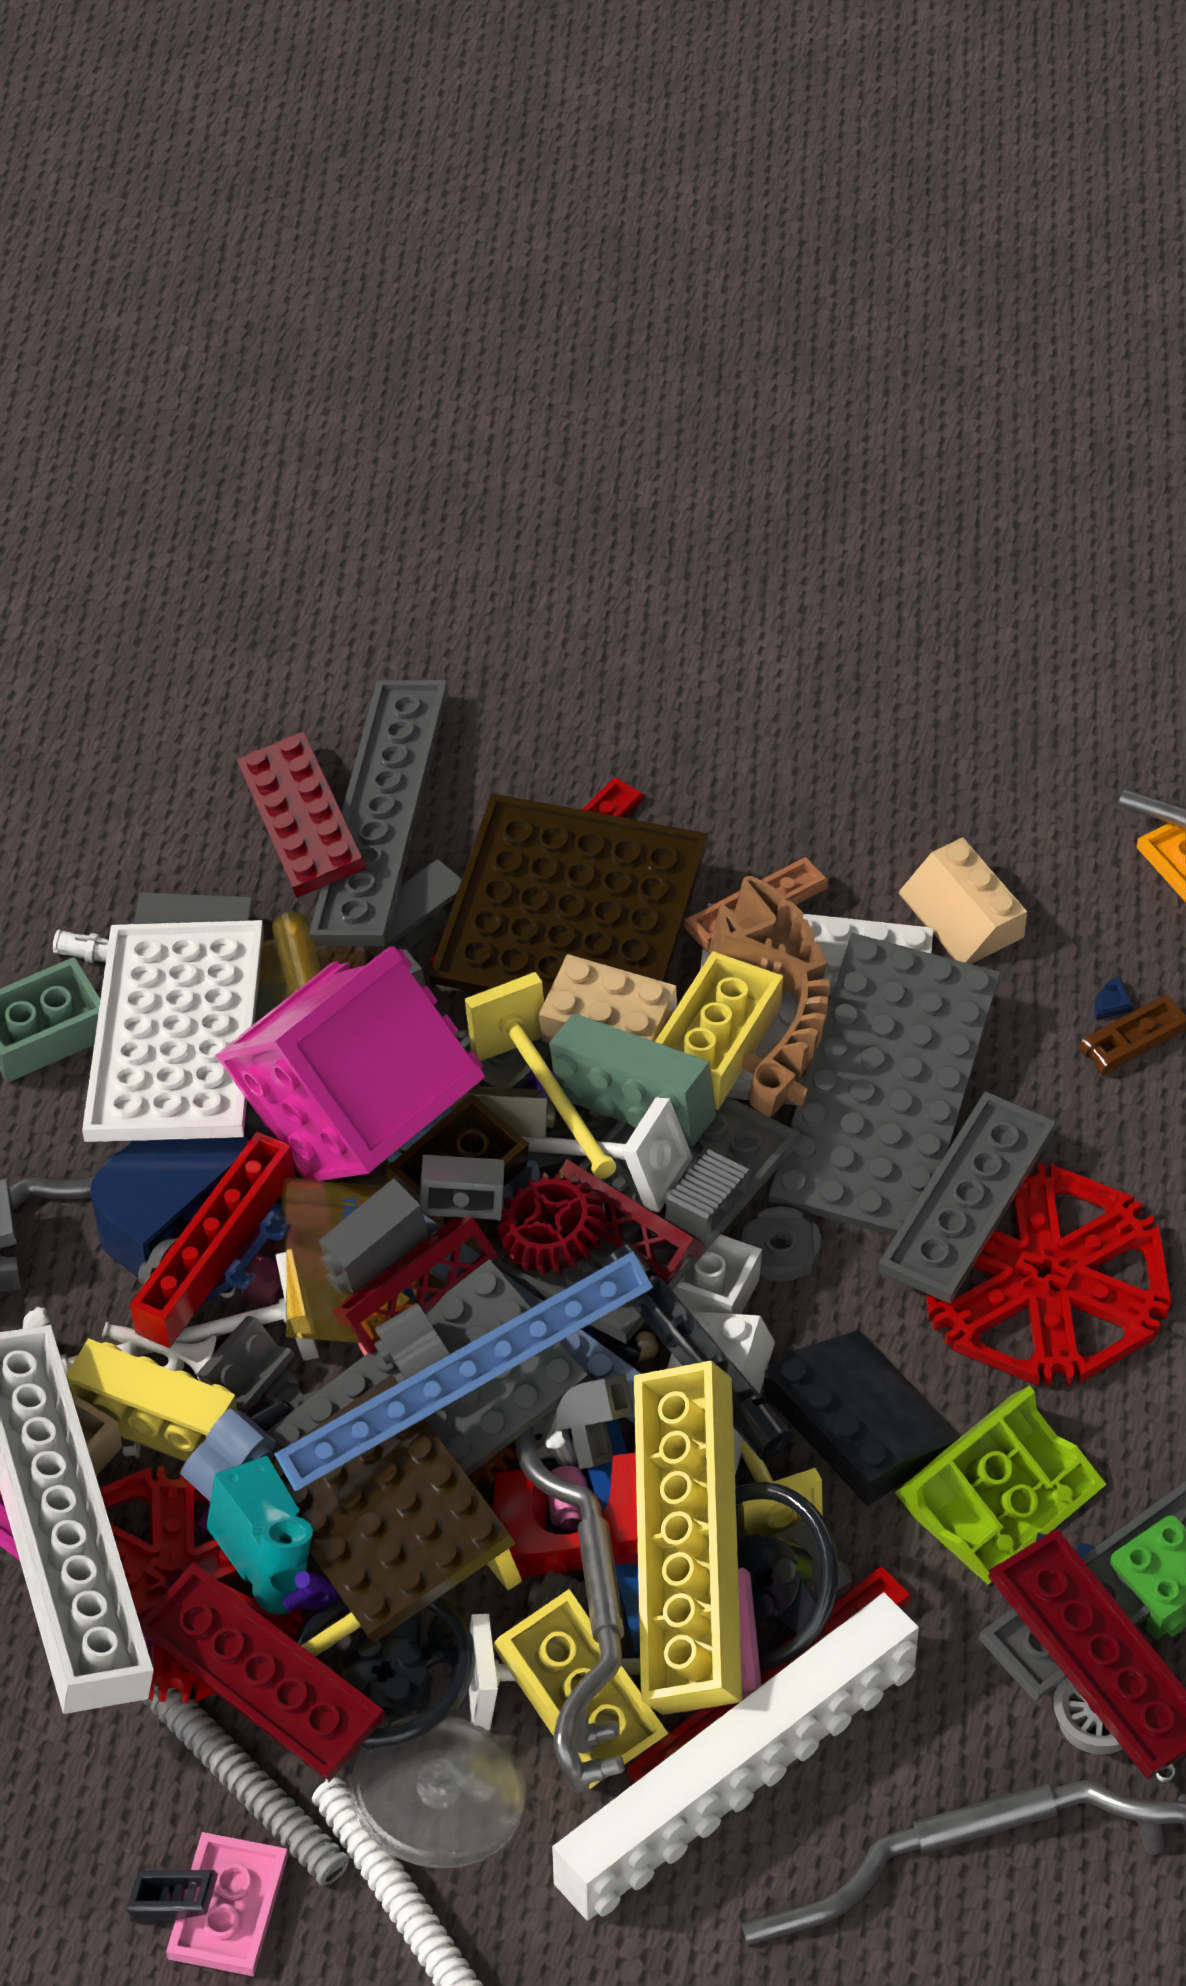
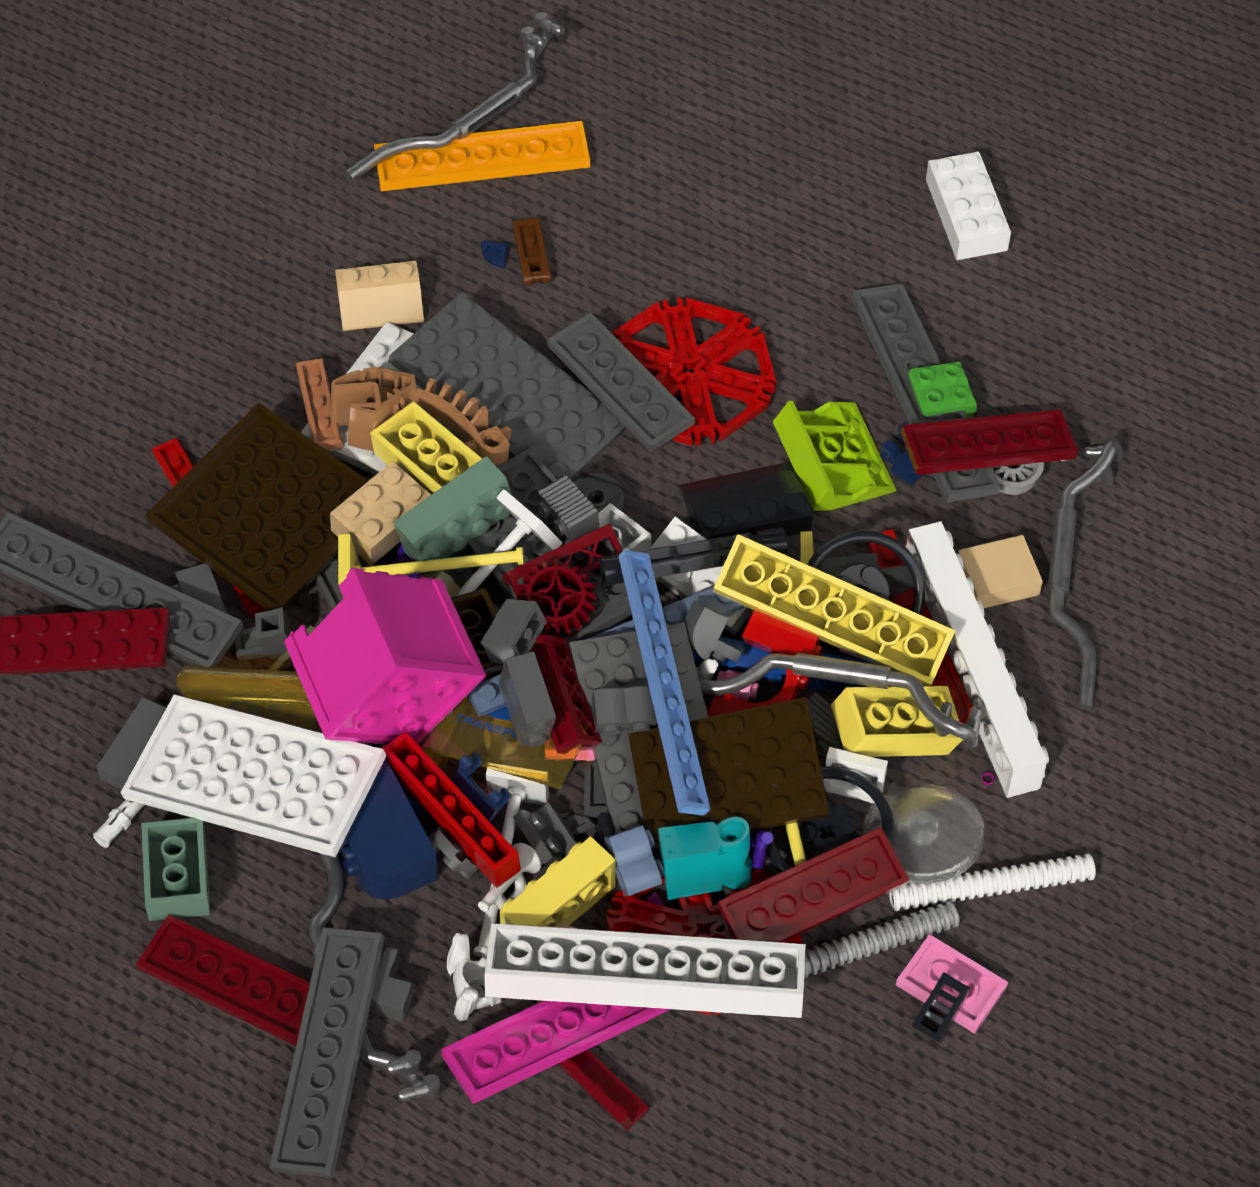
camera: 70 degrees left, 5 degrees up
(907, 1748) = (1001, 571): none -> tan brick

